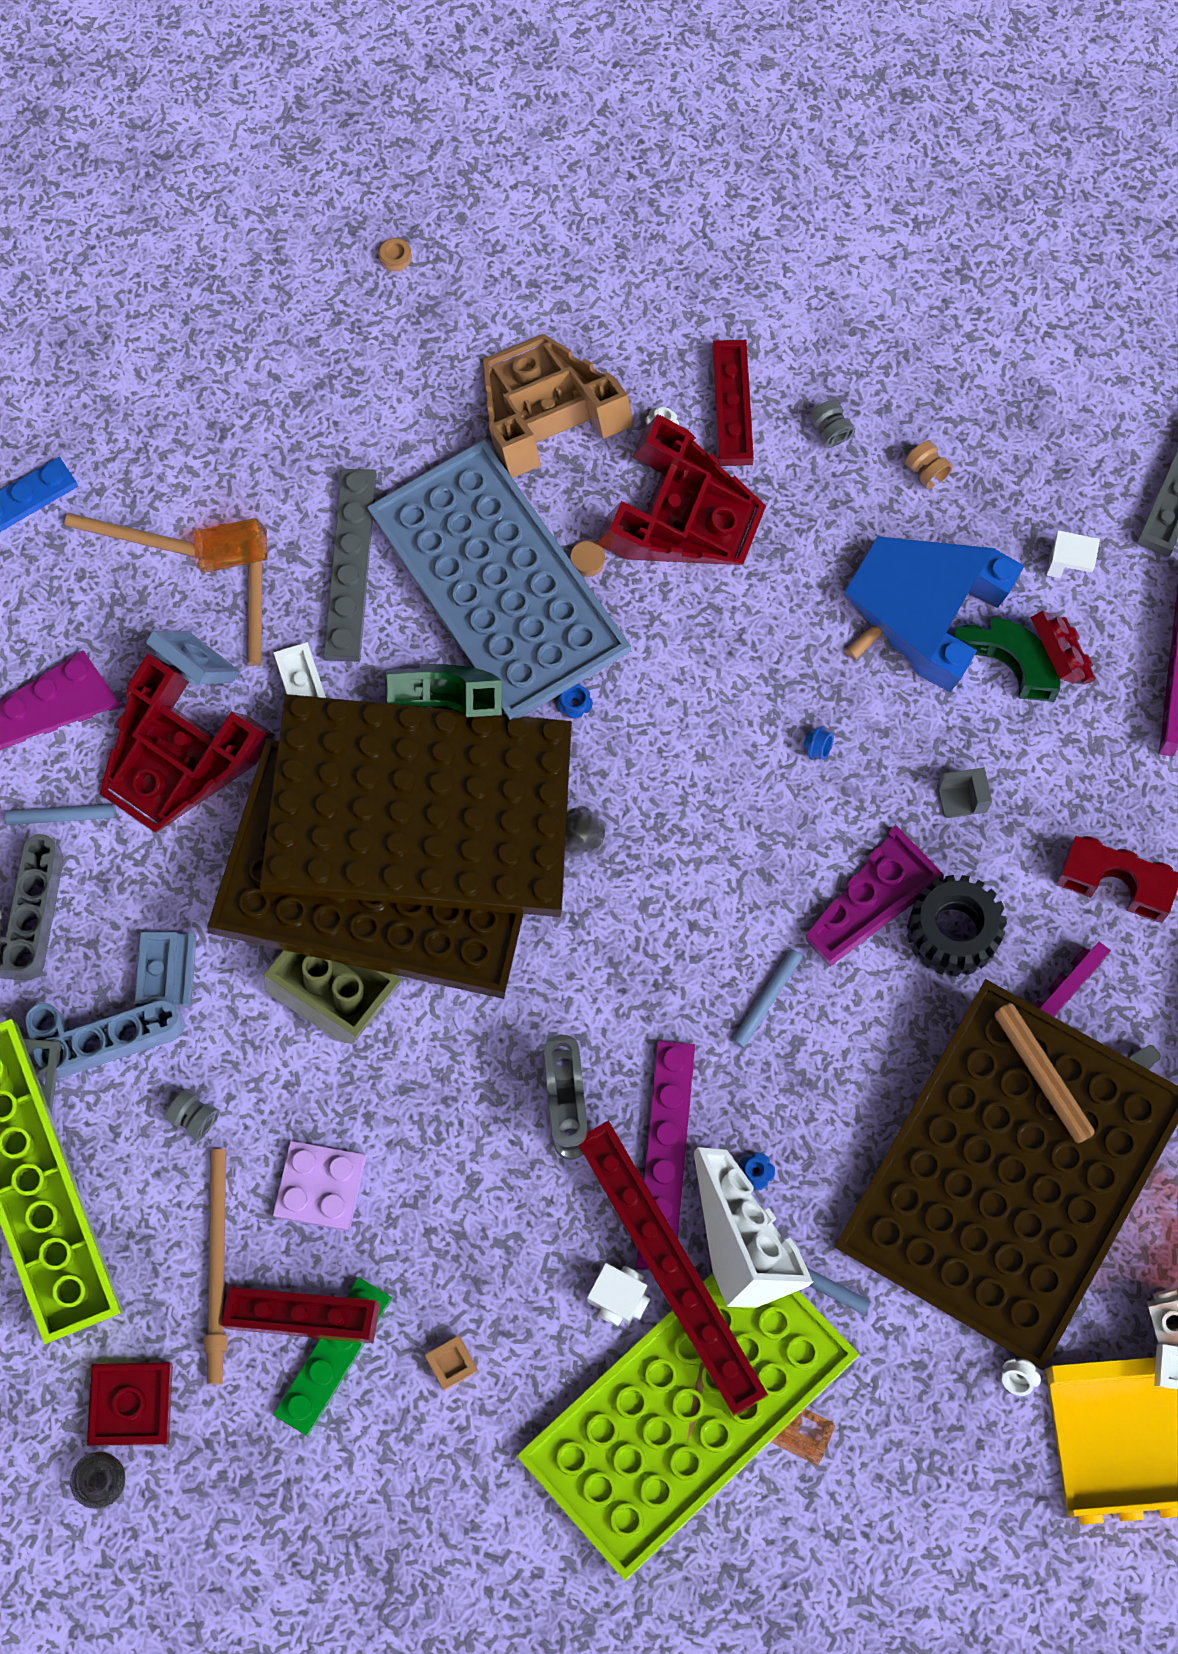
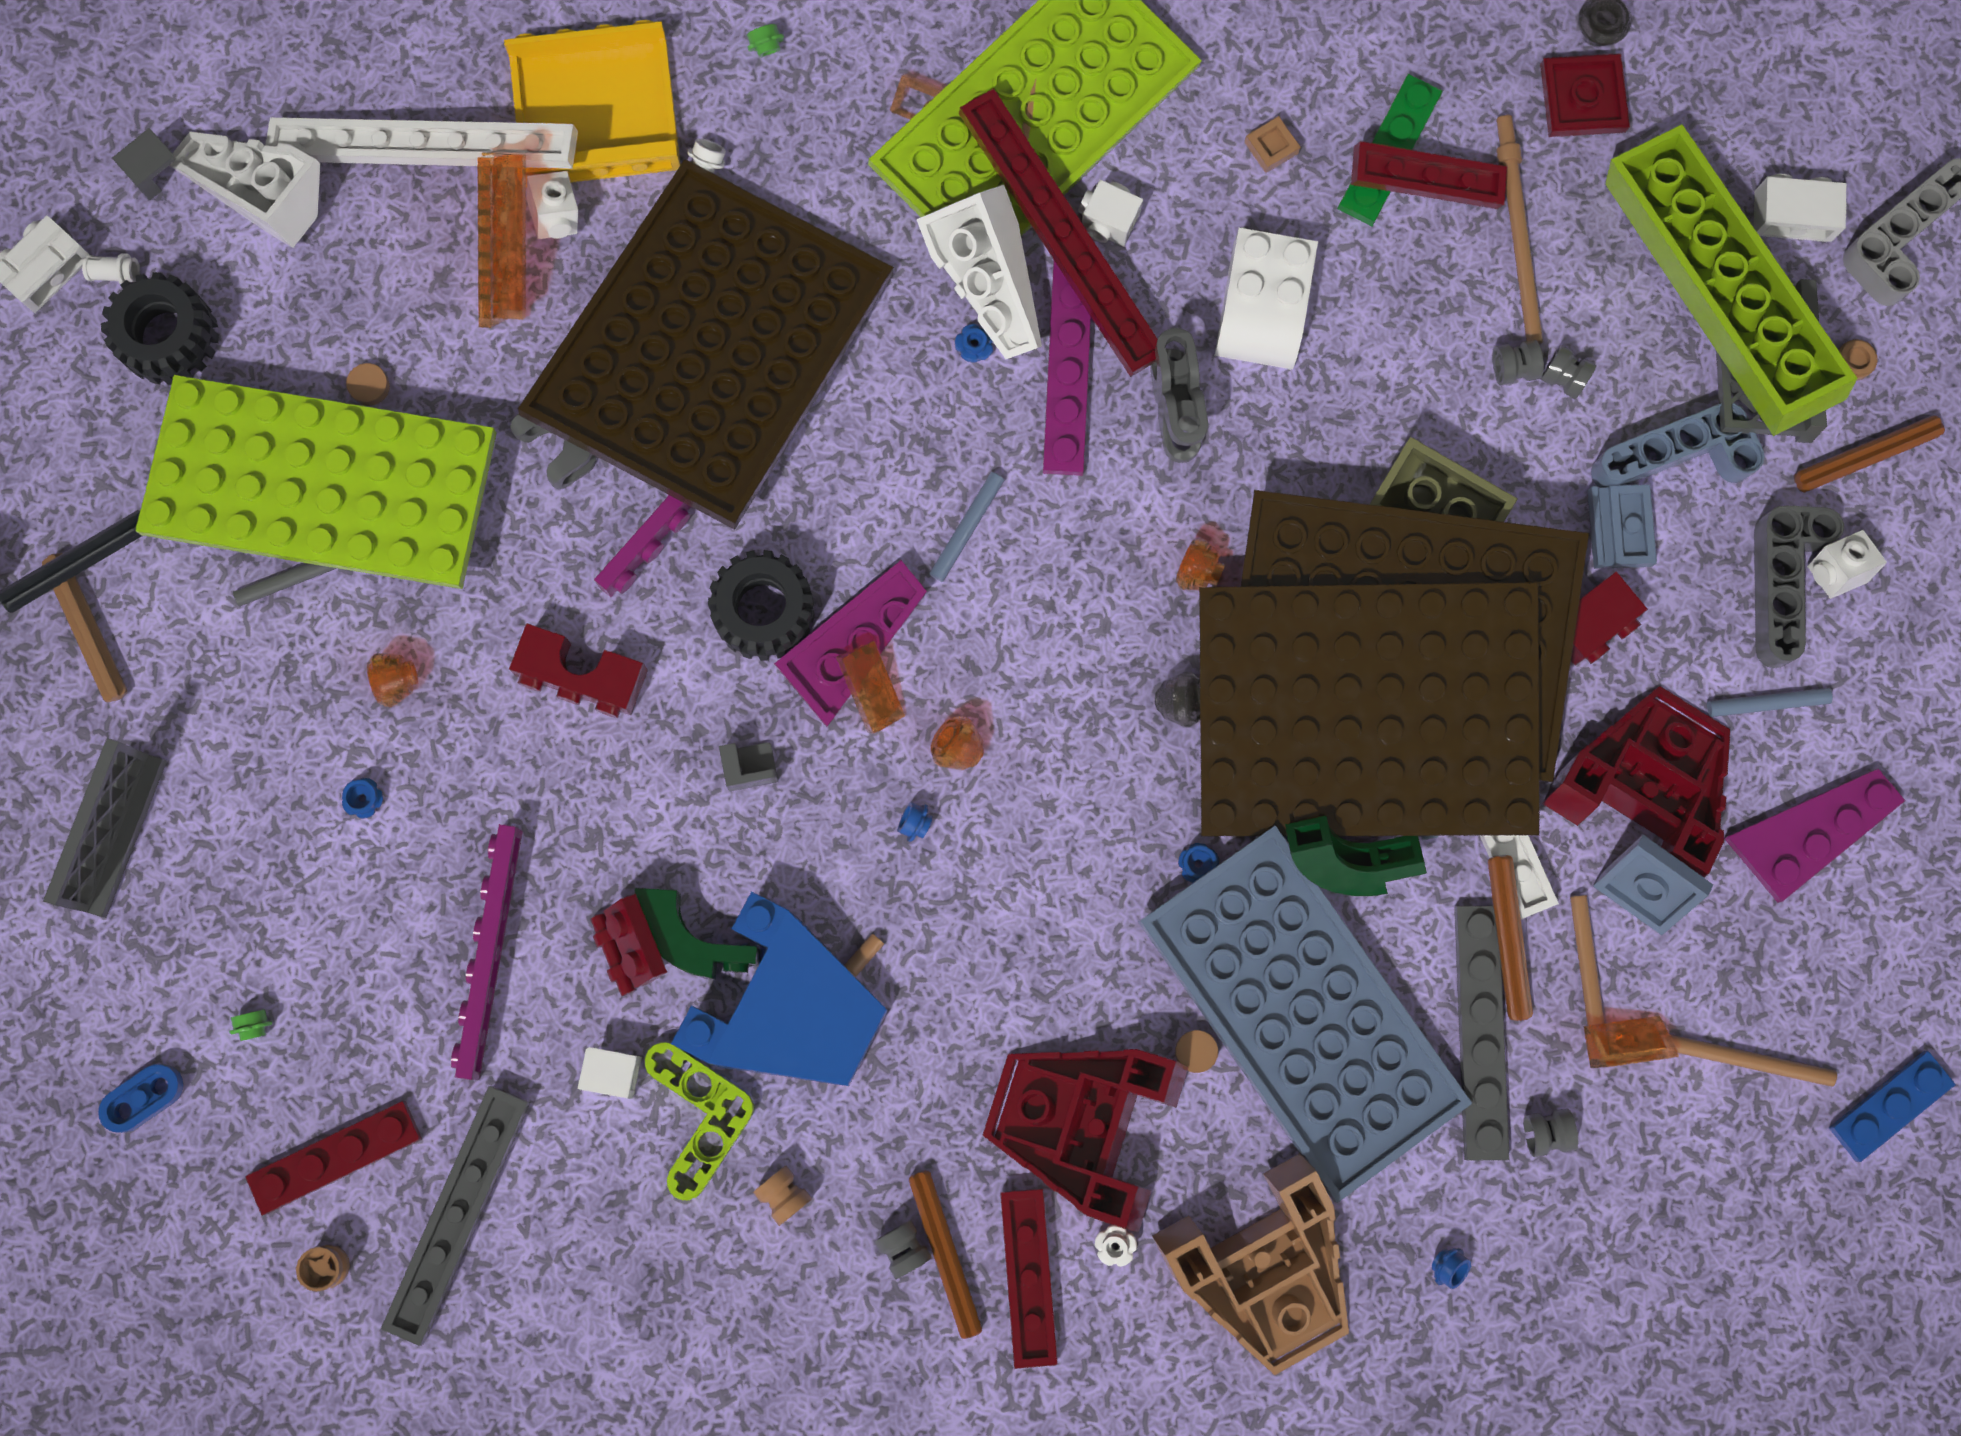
camera: 170 degrees right, 10 degrees up
(196, 886) = (1601, 615): none -> dark red brick
(243, 1128) = (1518, 362): none -> dark grey wheel
(298, 487) = (1551, 1132): none -> dark grey wheel
(318, 628) = (1510, 937): none -> dark orange axle
(319, 1186) = (1424, 311): lavender plate -> none
(398, 396) = (1451, 1267): none -> blue plate
(472, 1200) = (1266, 298): none -> white brick
(556, 946) = (1199, 566): none -> clear orange cone
(781, 801) = (957, 744): none -> clear orange cone
(798, 423) = (945, 1254): none -> dark orange axle
(839, 1292) = (892, 233): sand blue bar -> none
(857, 852) = (870, 687): none -> clear orange slope
(964, 1504) = (765, 40): none -> bright green plate
(986, 533) = (711, 1104): none -> lime beam
(1044, 1073) = (675, 424): medium nougat axle -> none

